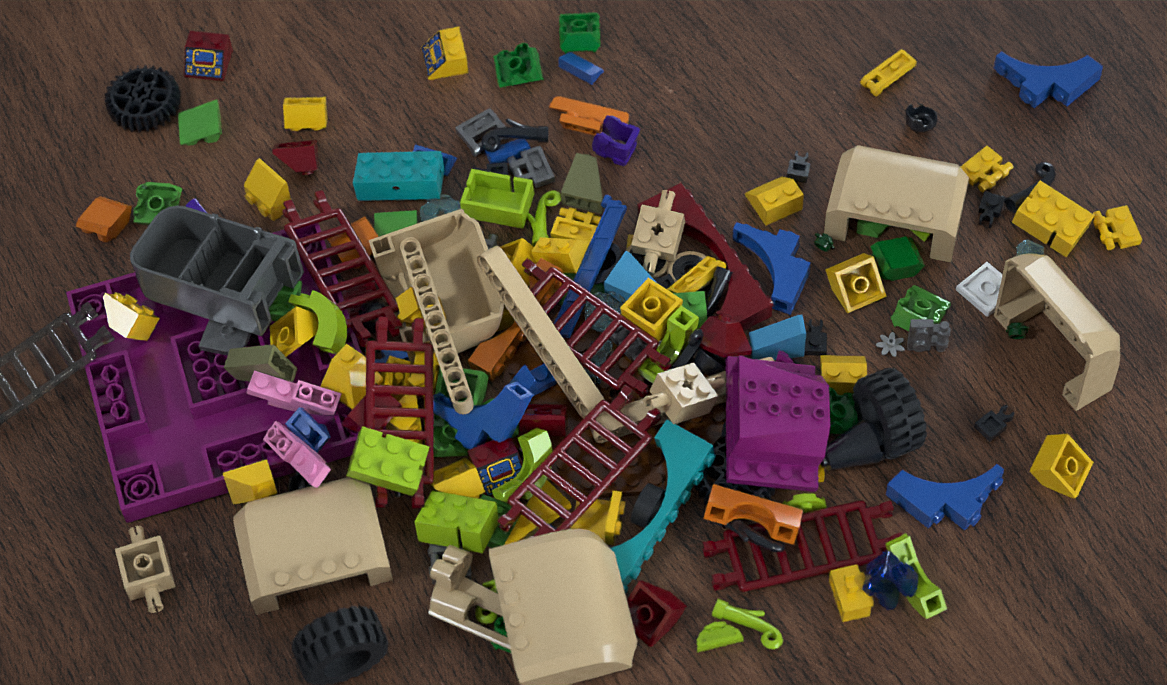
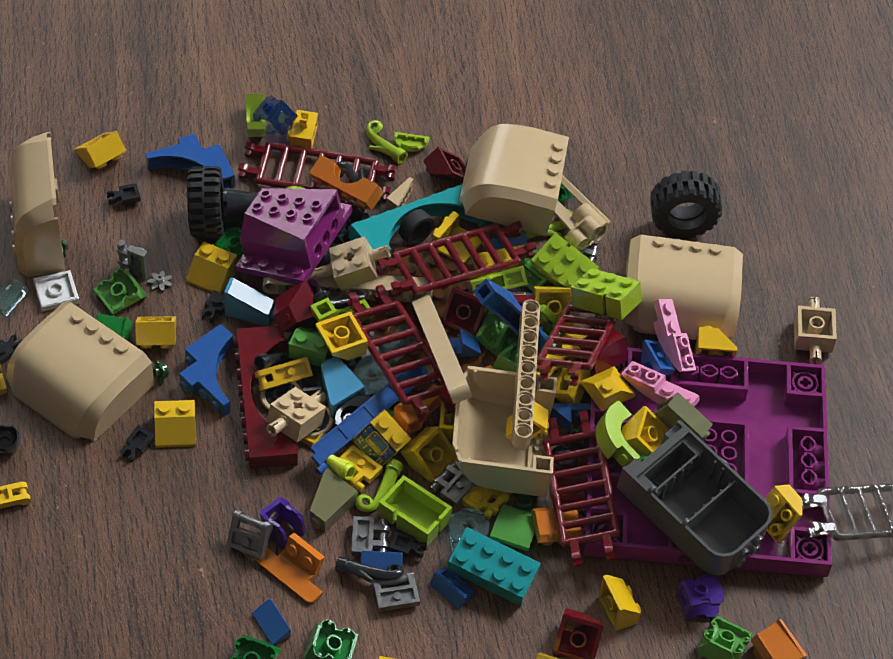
camera: 165 degrees left, 5 degrees down
(453, 452) = (547, 315): none -> lime plate
(586, 207) = (343, 468): none -> neon yellow cone
(645, 118) = (246, 540): none -> flat silver plate
(691, 542) = (400, 195): none -> tan slope

